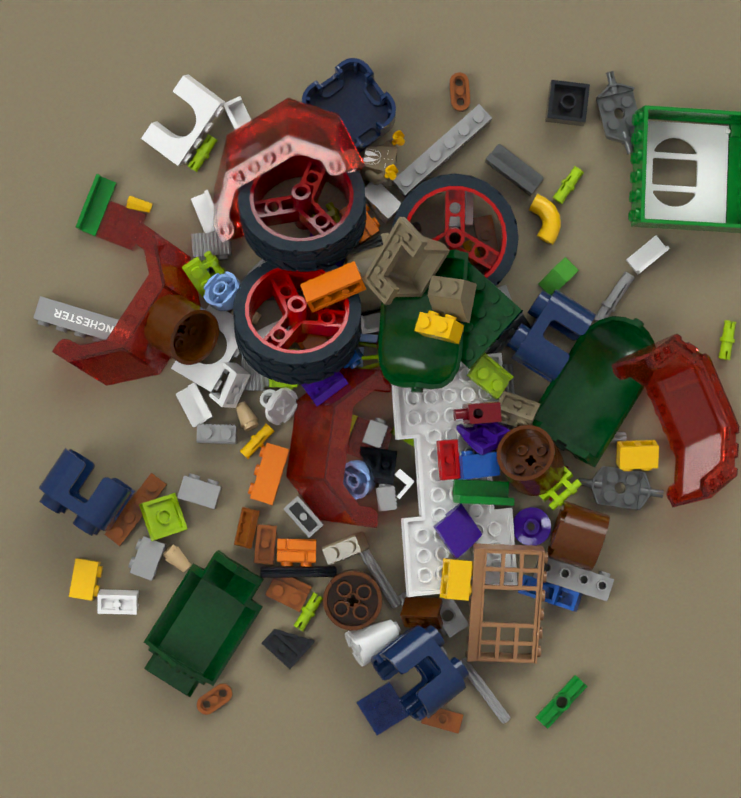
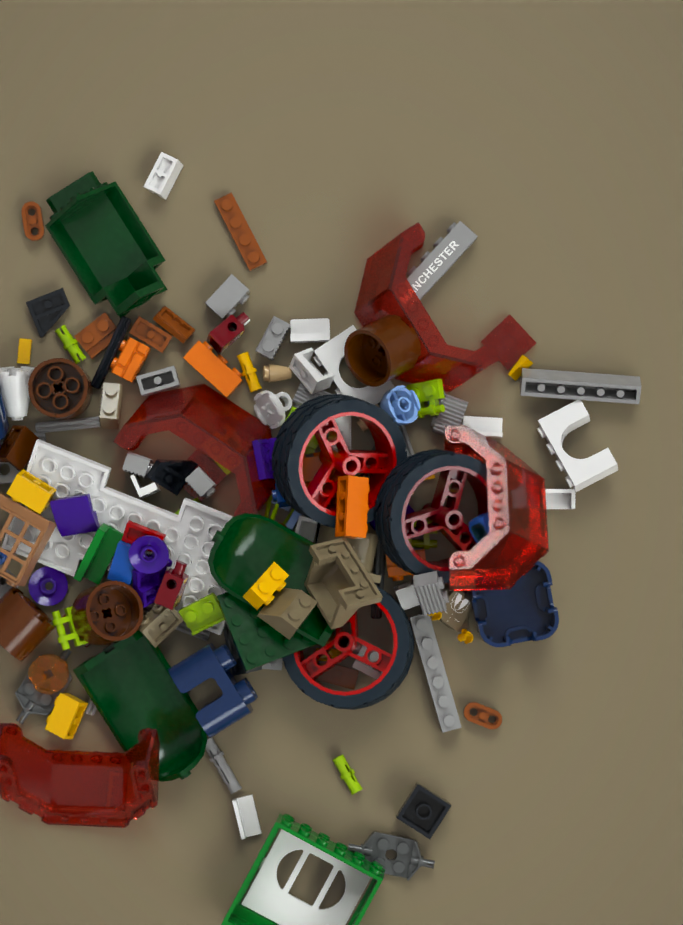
camera: 120 degrees right, 0 degrees up
(63, 488) = (282, 171): dark blue piece -> none
(85, 579) = (198, 155): yellow brick -> none
(96, 205) = (538, 328): green panel -> none
(129, 143) = (580, 386): none -> light grey brick
(147, 558) = (190, 221): light grey brick -> none
(163, 516) = (220, 253): lime plate -> none
(176, 557) = (178, 247): tan cone -> none
(202, 153) = (539, 449): lime pin -> none
(236, 478) = (221, 337): none -> dark red torso
(296, 166) = (479, 526): none -> rock
(334, 650) = (24, 351): none -> yellow piece
(358, 479) = (167, 446): light blue cylinder -> none
(375, 182) = (430, 592): none -> light grey brick
(469, 443) = (145, 562): none -> dark purple dish
(514, 169) = (386, 731): dark grey panel -> none
(550, 219) = (323, 741): yellow cylinder -> none
(558, 276) = (266, 723): bright green slope -> none
(614, 478) = (39, 679): none -> clear orange plate
(727, 340) = (131, 851): lime pin -> none

